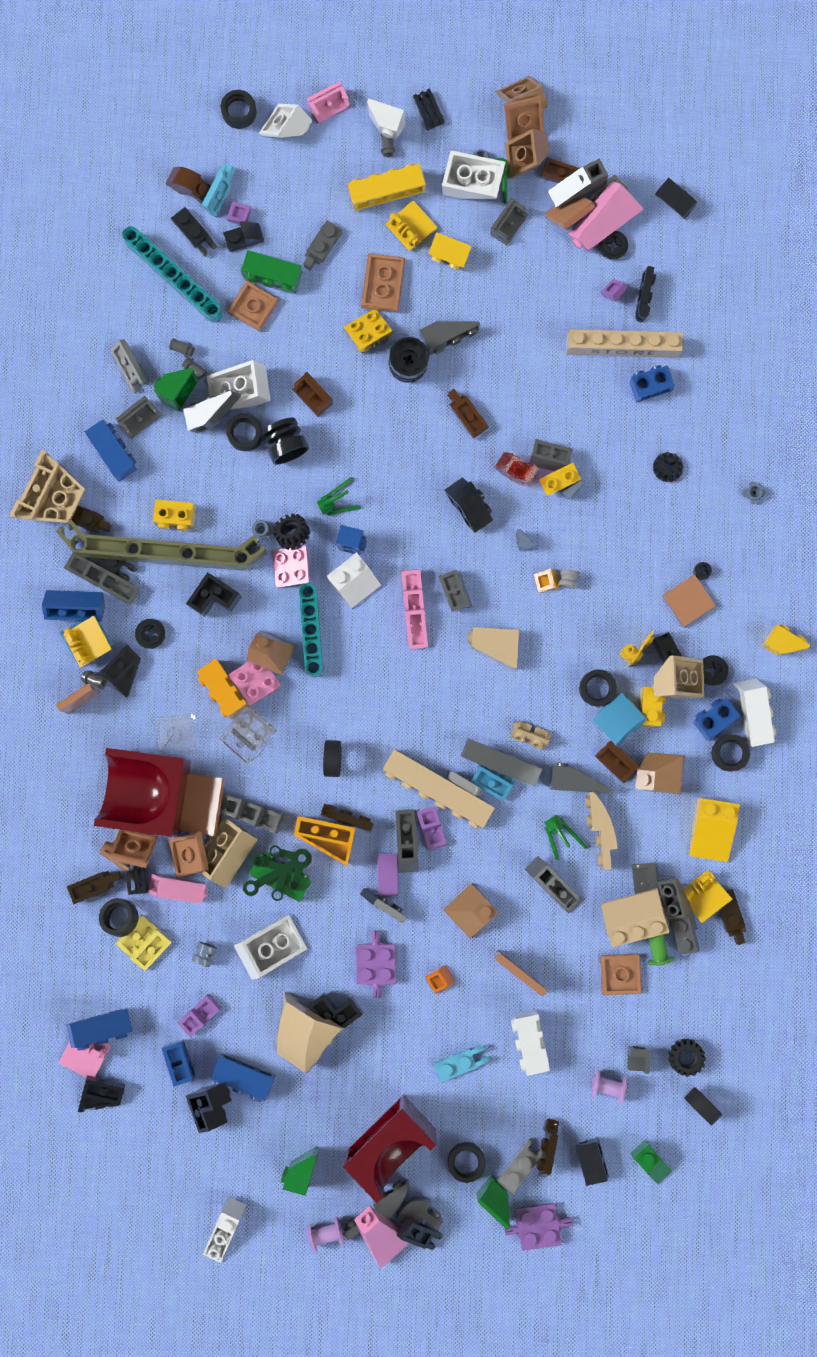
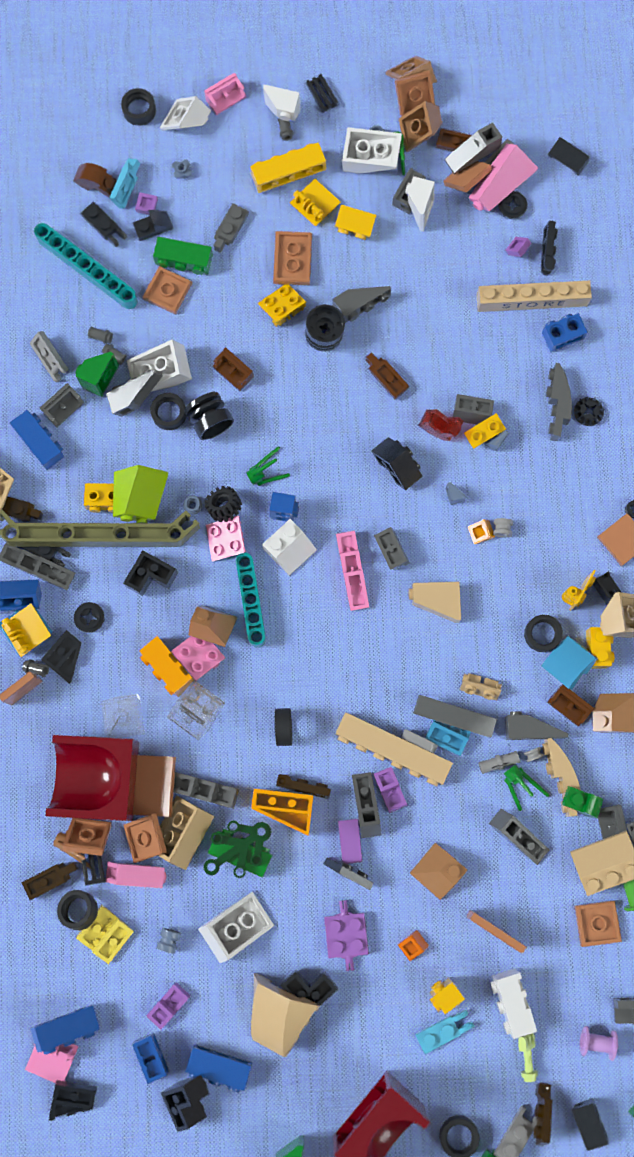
camera: 10 degrees left, 5 degrees down
(207, 514) = (138, 493): none -> lime slope
(274, 184) = (186, 172): none -> sand blue plate
(465, 1029) = (445, 996): none -> yellow brick
(519, 232) = (420, 199): none -> white slope
(539, 1081) = (526, 1044): none -> yellowish green hinge
(541, 810) = (499, 762): none -> light grey pin
(575, 806) = (533, 754): none -> light grey bush
(617, 857) = (582, 802): none -> green brick
(640, 449) = (560, 398): none -> dark grey slope

